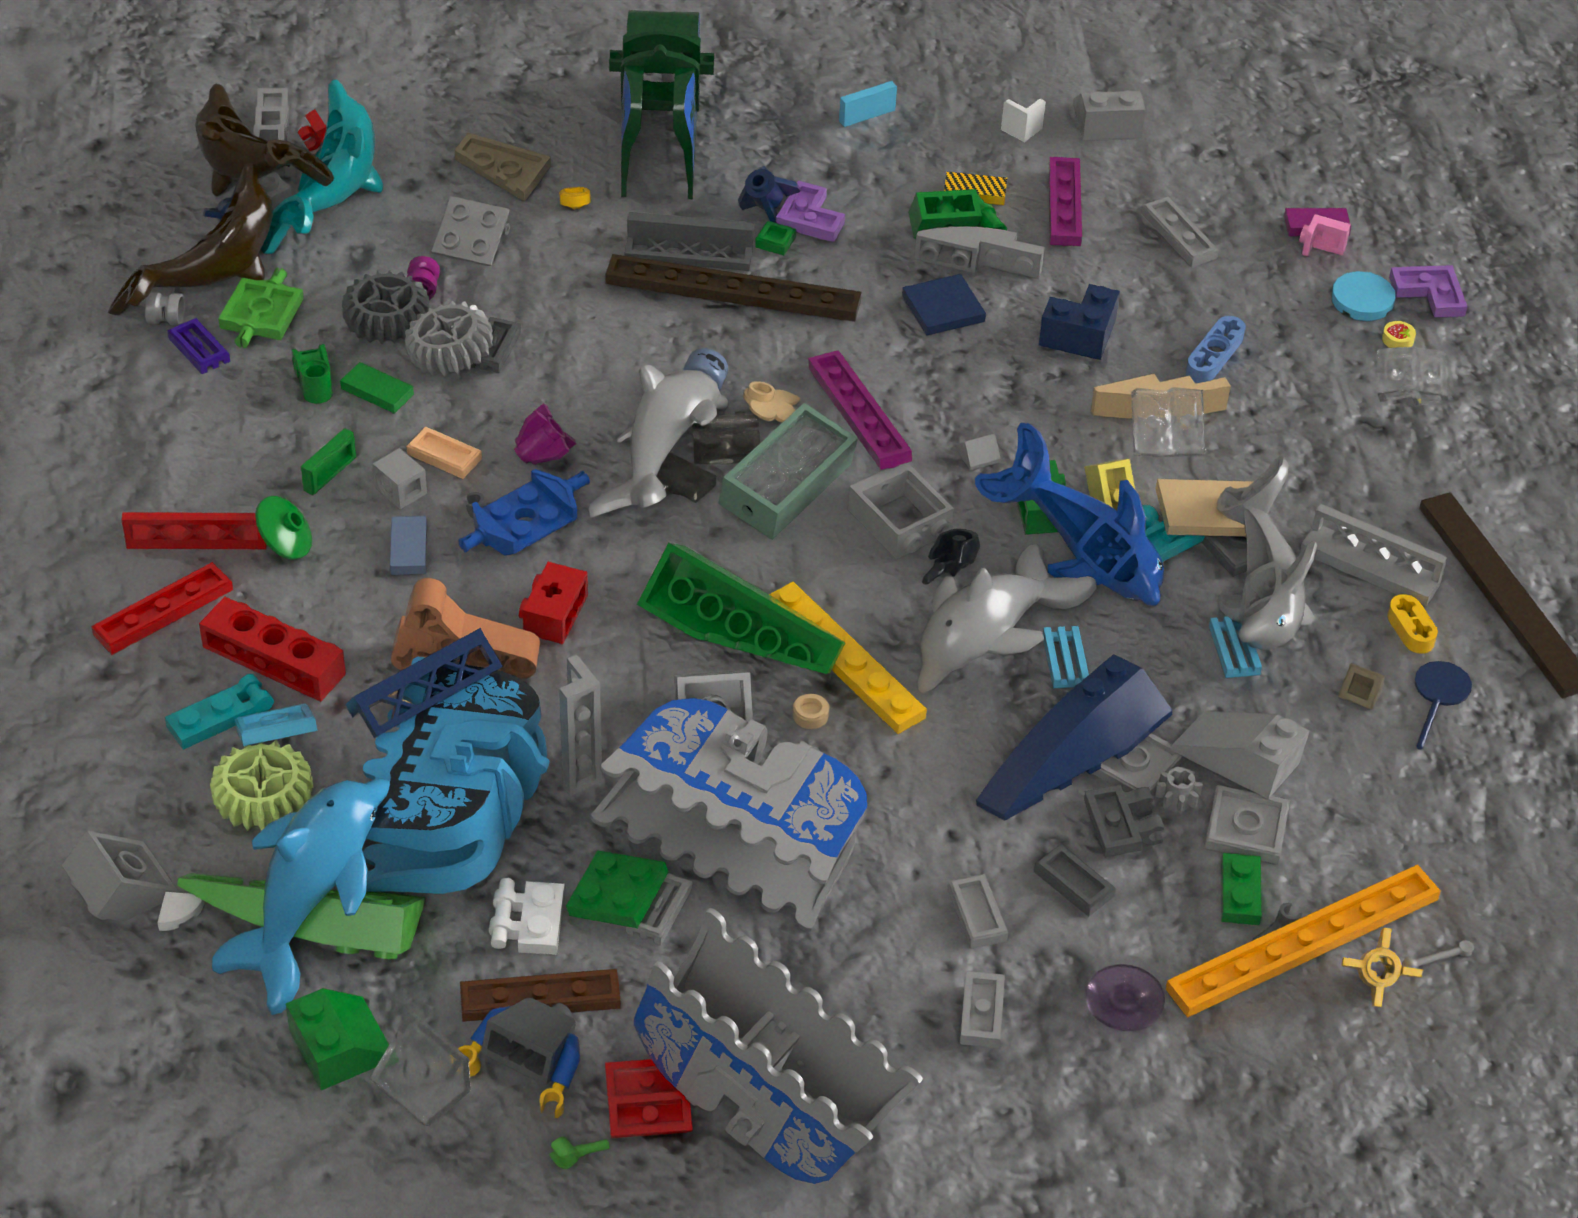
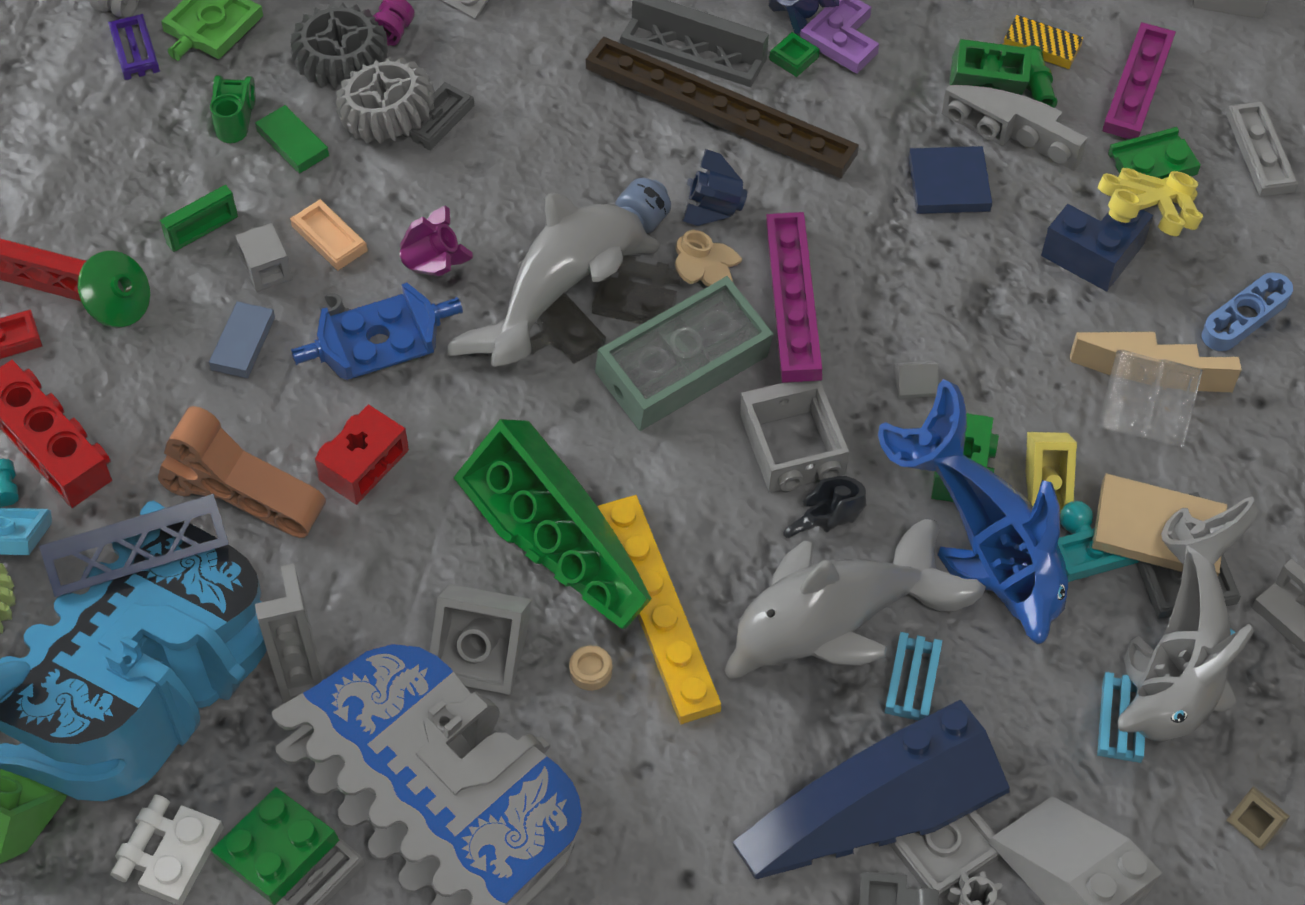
camera: 20 degrees right, 10 degrees up
(760, 349) = (716, 192): none -> dark blue brick
(1099, 256) = (1155, 154): none -> green plate
(1100, 280) = (1138, 191): none -> light yellow plant

